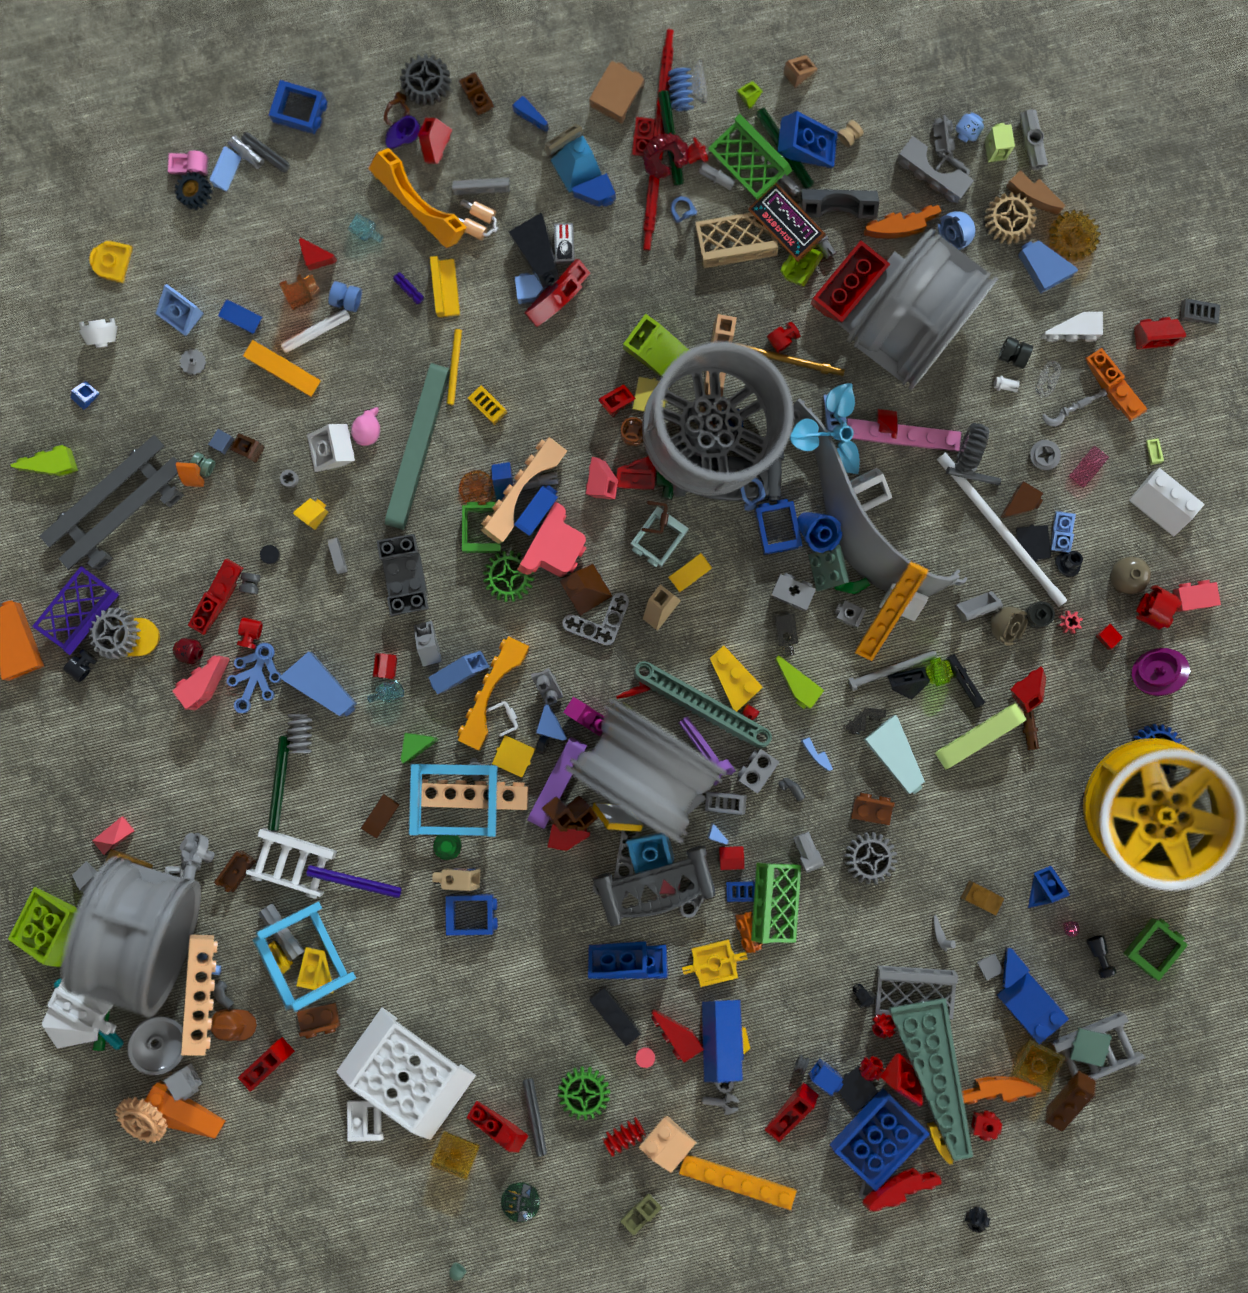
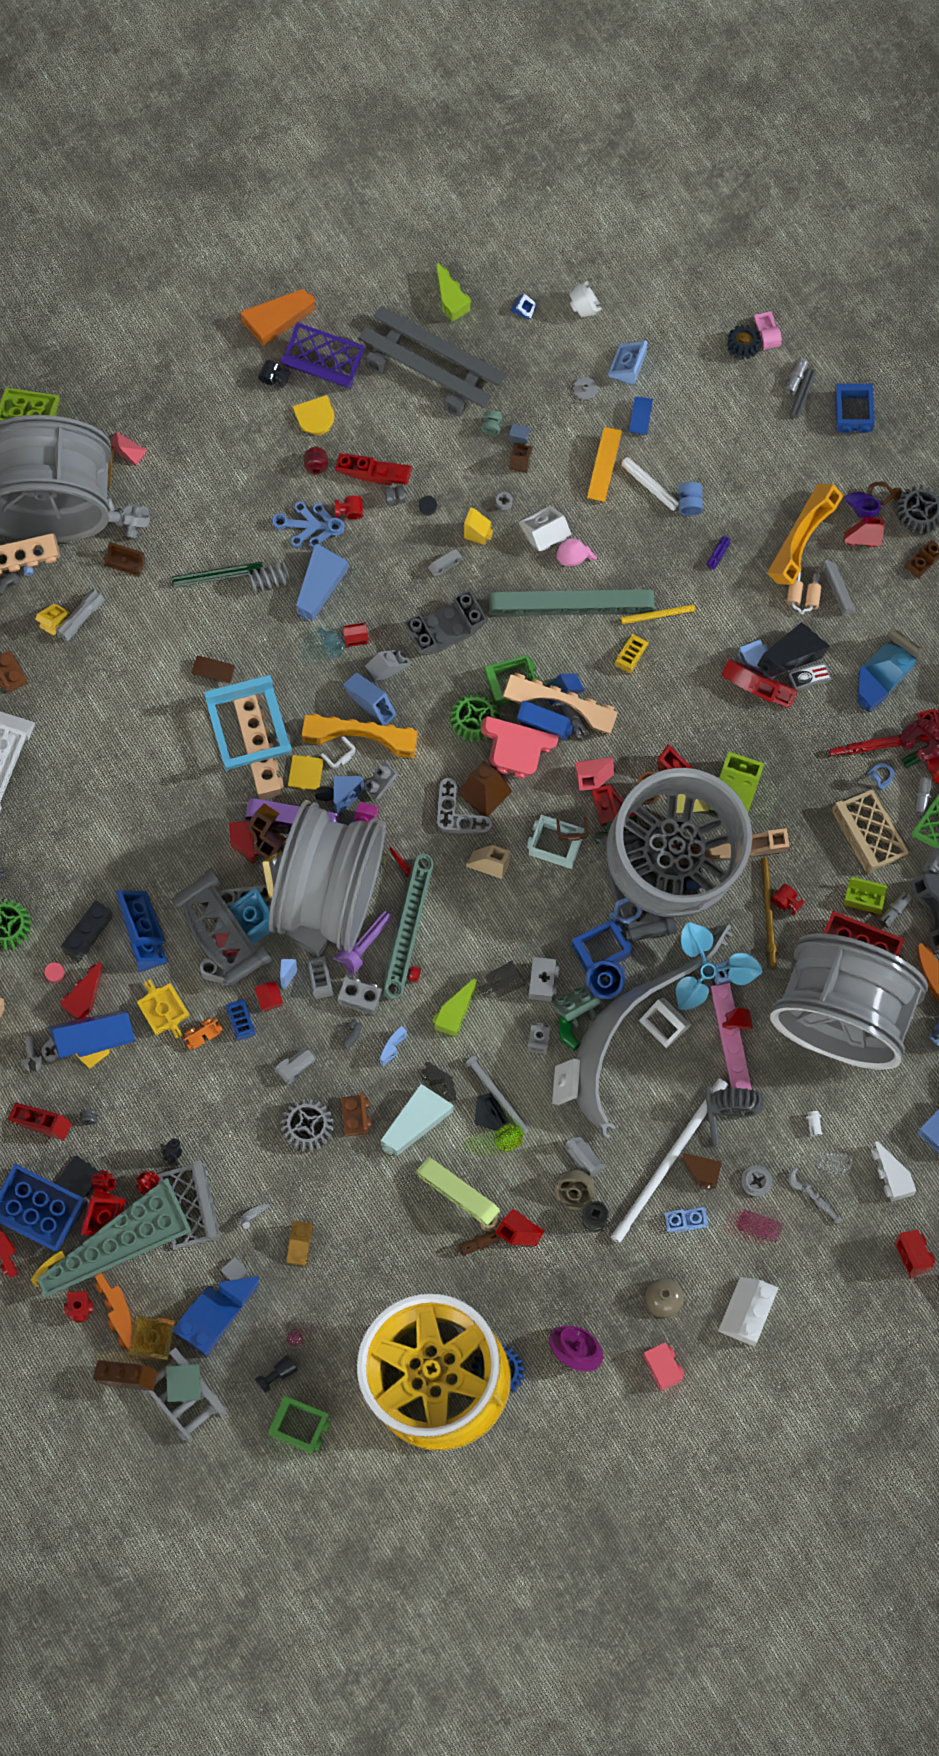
camera: 65 degrees right, 15 degrees down
(111, 260) = (655, 293): yellow tile -> none
(124, 635) = (311, 399): light grey gear -> none
(189, 474) = (478, 413): orange slope -> none
(202, 683) = (289, 480): coral slope -> none
(225, 169) = (774, 363): light blue slope -> none
(275, 973) = (90, 612): medium azure piece -> none
(300, 291) = (680, 458): clear orange hips -> none
(305, 849) = (162, 613): white fence -> none
(314, 969) = (51, 655): yellow wing -> none
(315, 256) = (718, 462): red slope -> none
(353, 881) = (145, 664): dark purple axle -> none
(364, 228) = (760, 497): clear light blue piece -> none
(414, 745) = (287, 678): bright green slope -> none
(445, 287) = (730, 583): yellow panel -> none
(447, 846) = (203, 737): green plate -> none
(451, 914) = (142, 757): blue window -> none
(464, 879) = (175, 754): tan torso -> none
(476, 487) = (549, 666): clear orange wheel -> none
(526, 110) = (924, 606): blue slope -> none
(690, 572) = (531, 879): yellow slope -> none
(735, 678) = (442, 951): yellow wing -> none
(764, 903) = (236, 1031): bright green fence -> none
(787, 222) = (899, 868): tile -> none
(826, 1077) = (83, 1139): blue brick -> none
(891, 611) = (551, 1065): light orange plate -> none
(976, 699) = (506, 1168): black pin -> none
(1015, 352) = (848, 1121): pearl dark grey wheel -> none
(1035, 541) = (668, 1197): black piece -> none
(1046, 888) = (329, 1302): blue slope -> none
(1069, 563) = (655, 1233): black piece -> none
(1075, 621) = (603, 1252): coral gear -> none
(1109, 637) = (596, 1294): red slope -> none
(1113, 382) = (849, 1227): orange slope -> none
(1154, 451) = (796, 1288): yellowish green piece -> none
(1158, 608) = (639, 1327): red brick -> none

